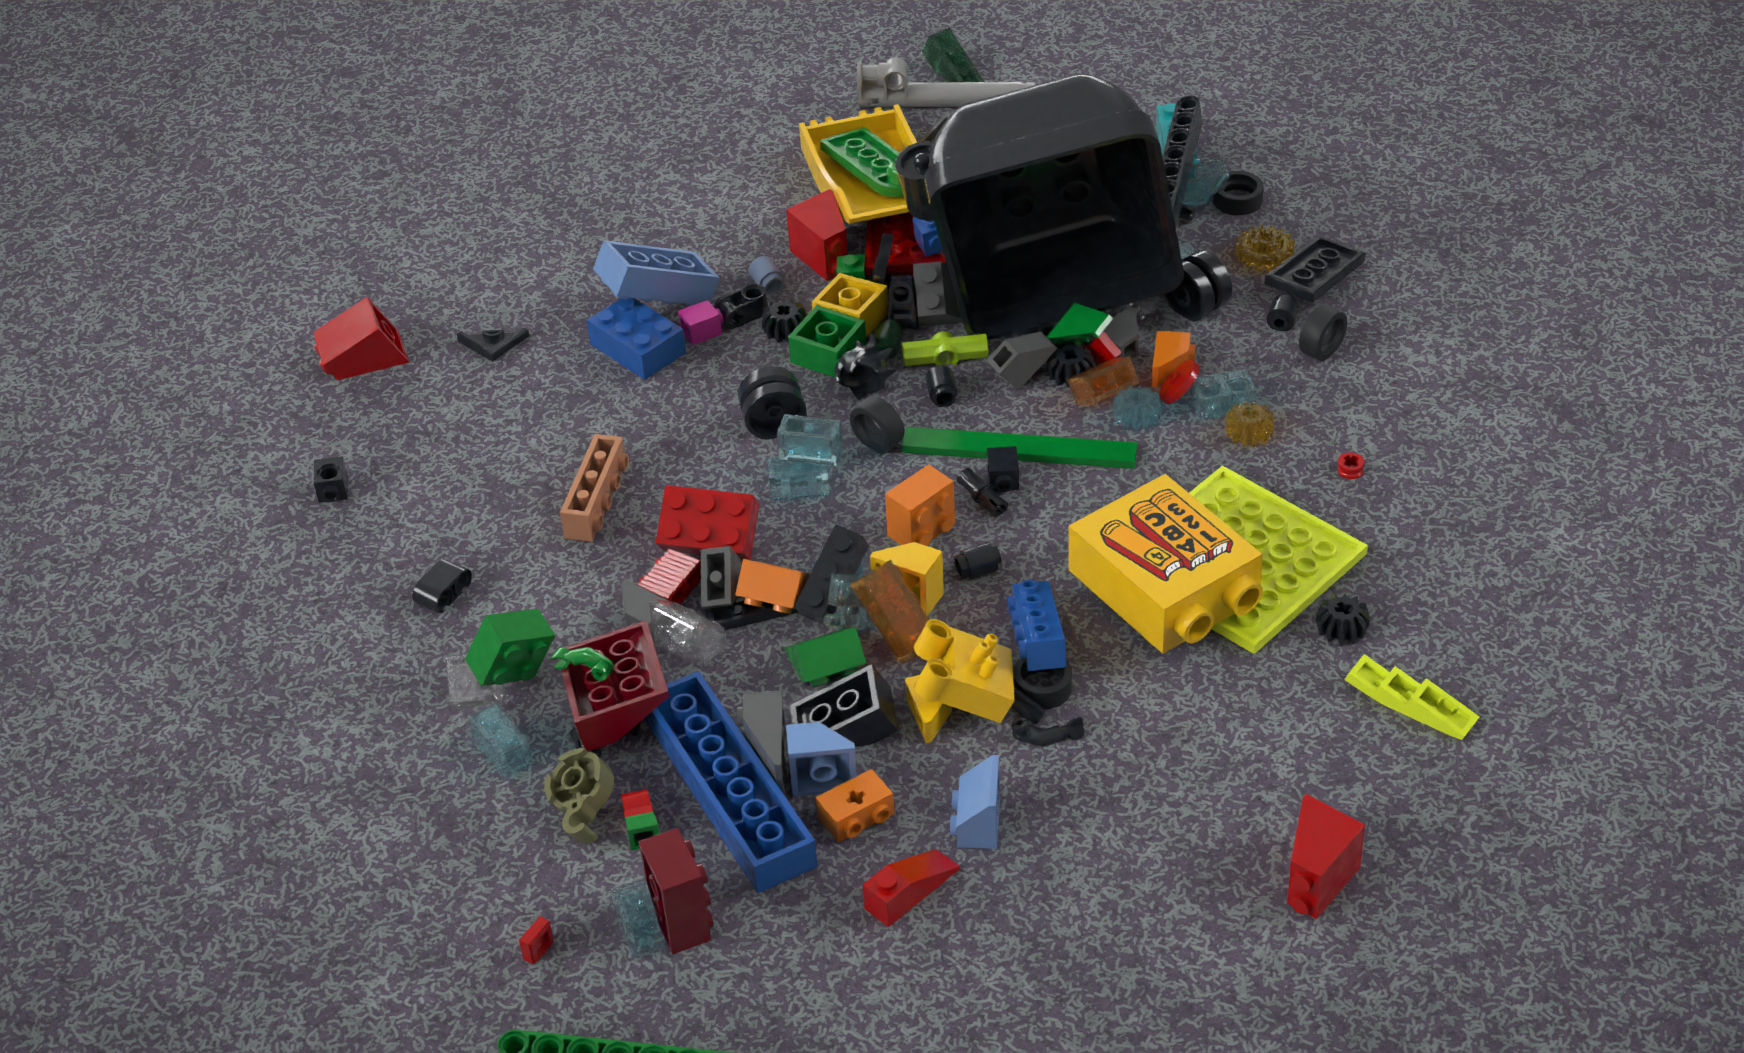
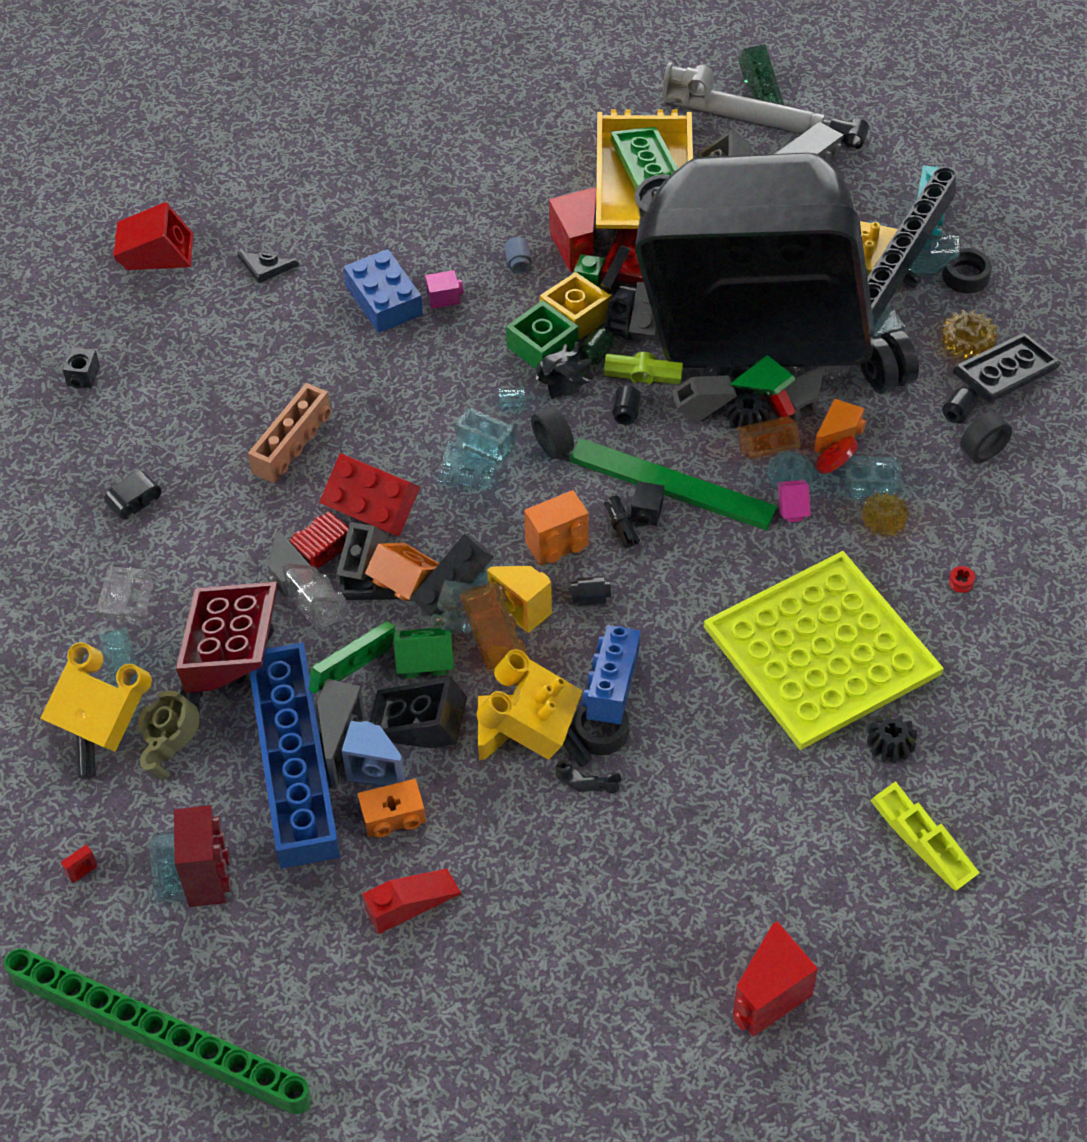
camera: 15 degrees right, 10 degrees up
(491, 785) = (92, 707): none -> yellow piece
(509, 647) = (156, 575): green brick -> none
(600, 665) = (217, 618): green arm -> none
(638, 815) = (208, 769): leg -> none
(655, 273) = (416, 235): medium blue brick -> none
(744, 305) = (487, 282): black piece -> none
(755, 673) = (352, 657): none -> green plate
(766, 398) = (469, 383): black wheel -> none
(782, 319) = (513, 303): black gear -> none
(825, 400) = (509, 393): none -> clear light blue bush
(977, 806) = (494, 841): medium blue slope -> none
(1153, 431) = (794, 500): none -> dark pink brick
(1165, 563) = (746, 645): yellow brick -> none

